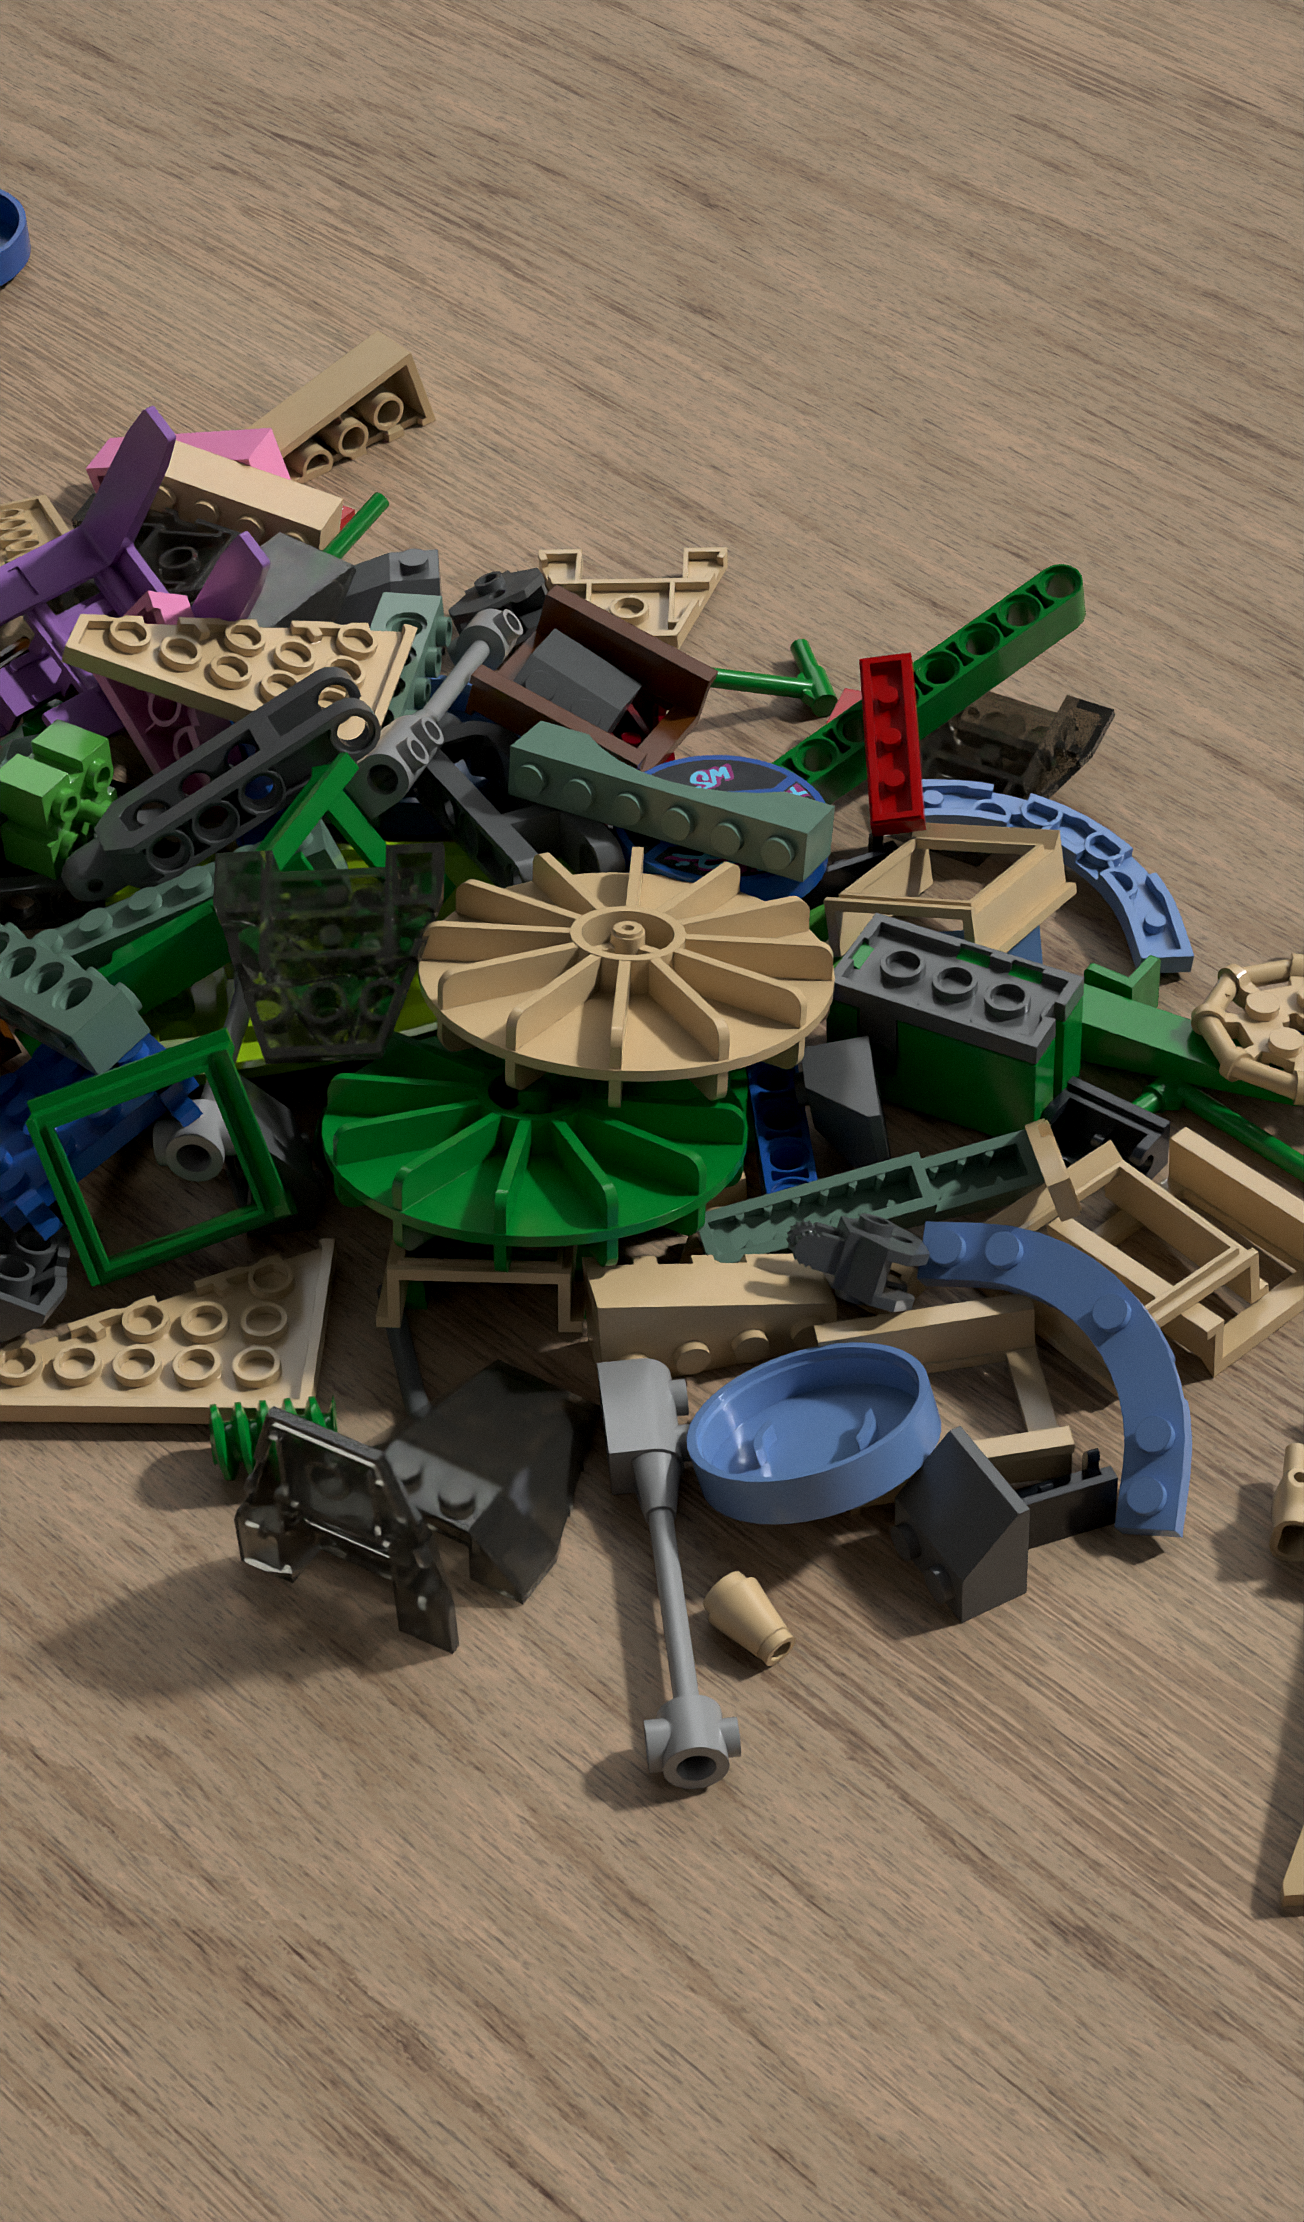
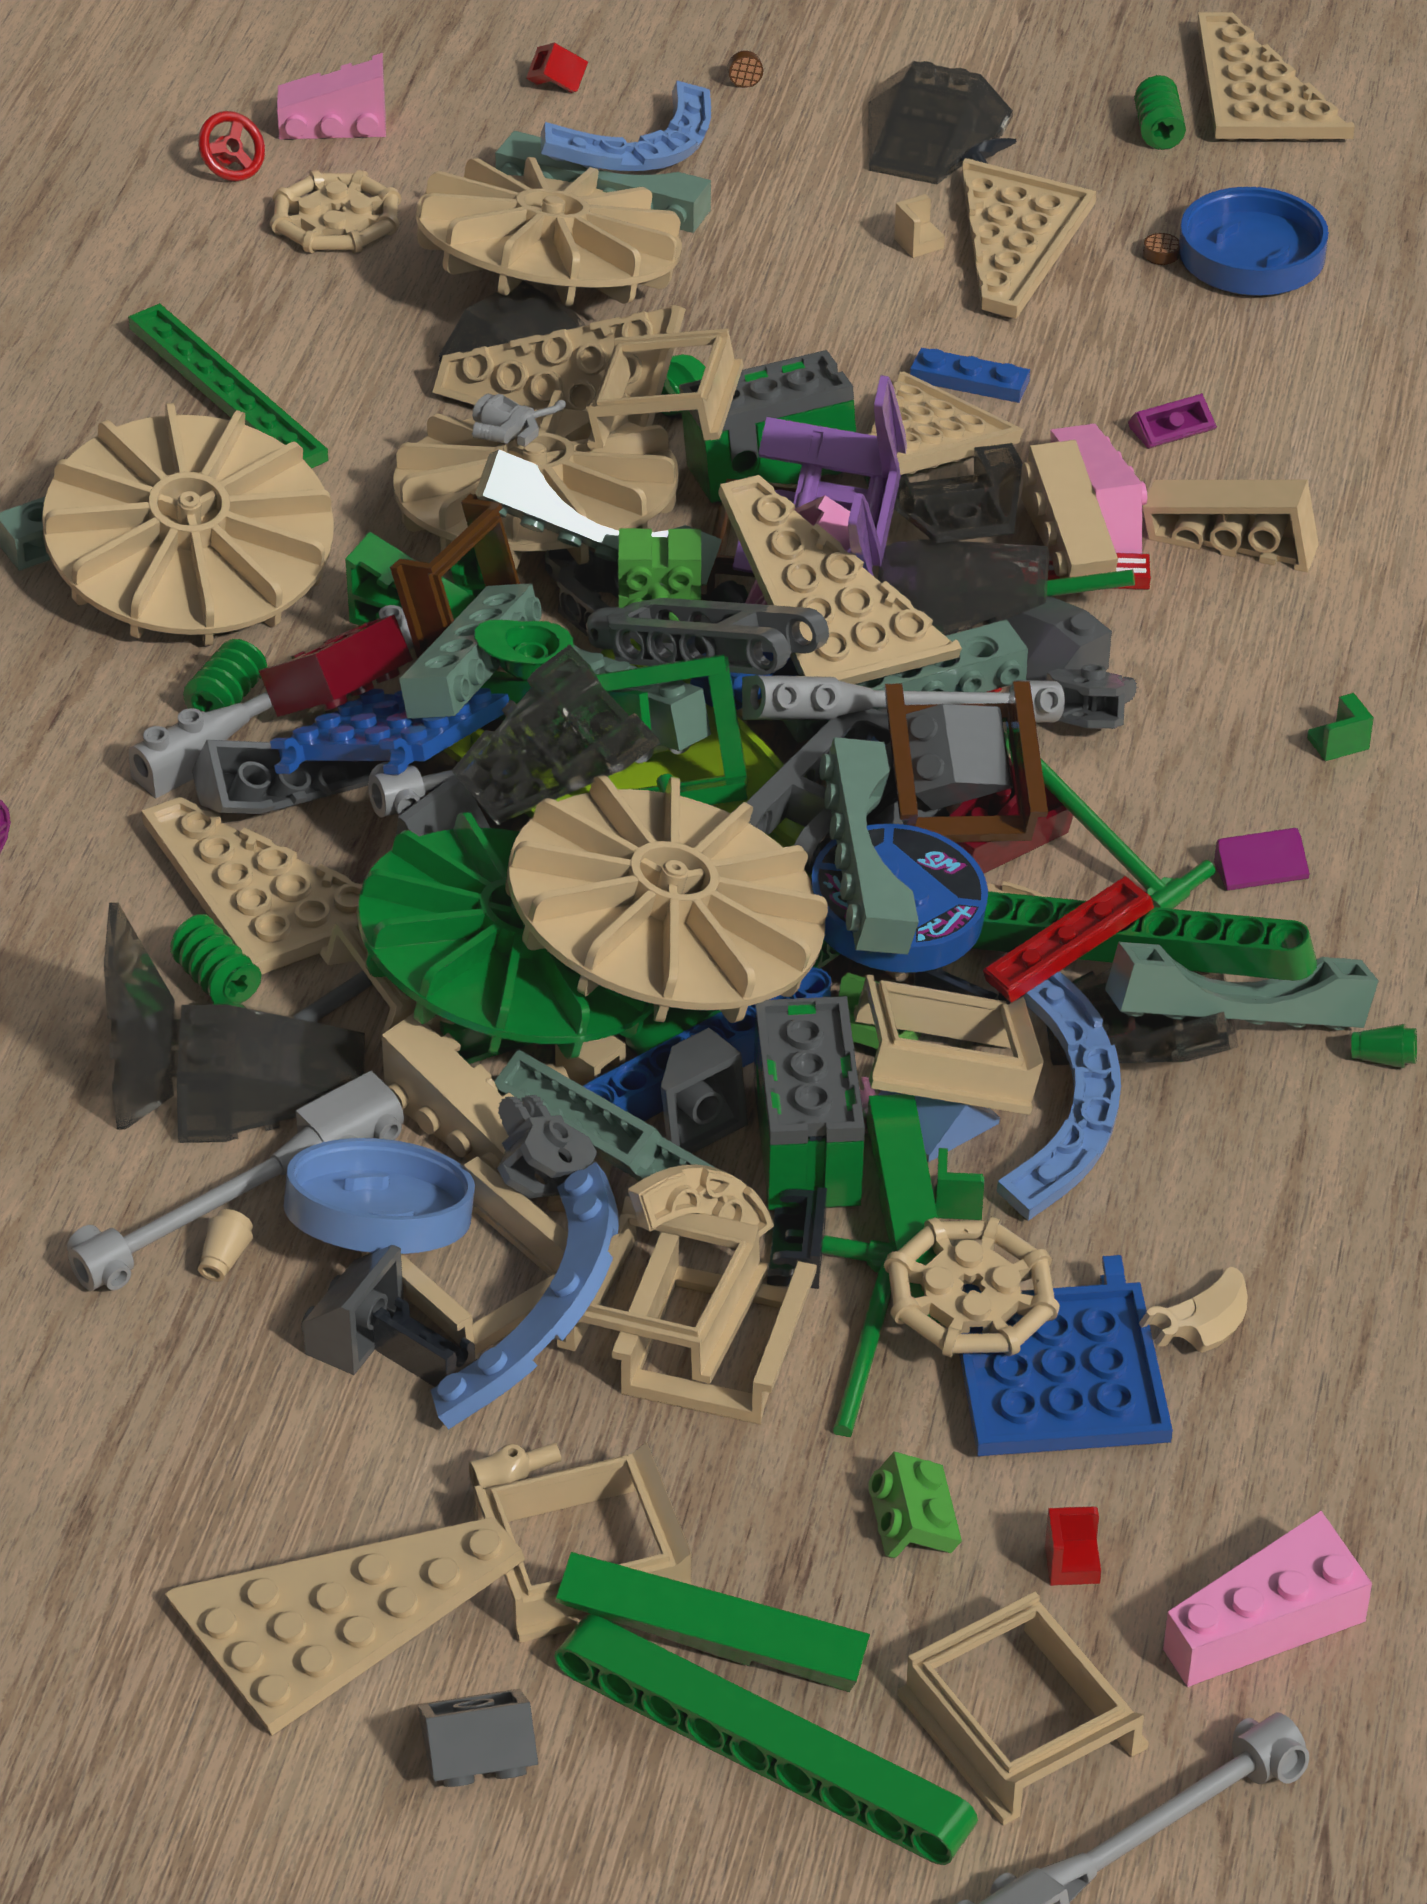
camera: 55 degrees right, 0 degrees up
(90, 929) = (521, 644): none -> green piece
(133, 394) = (1172, 421): none -> magenta slope
(206, 1055) = (375, 721): green piece -> none
(655, 605) = (1168, 769): tan wing -> none
(692, 483) = (1348, 734): none -> green panel
(822, 609) = (1261, 859): none -> magenta slope
(1013, 709) = (1152, 982): none -> sand green arch
(1149, 636) = (1386, 1045): none -> green cone

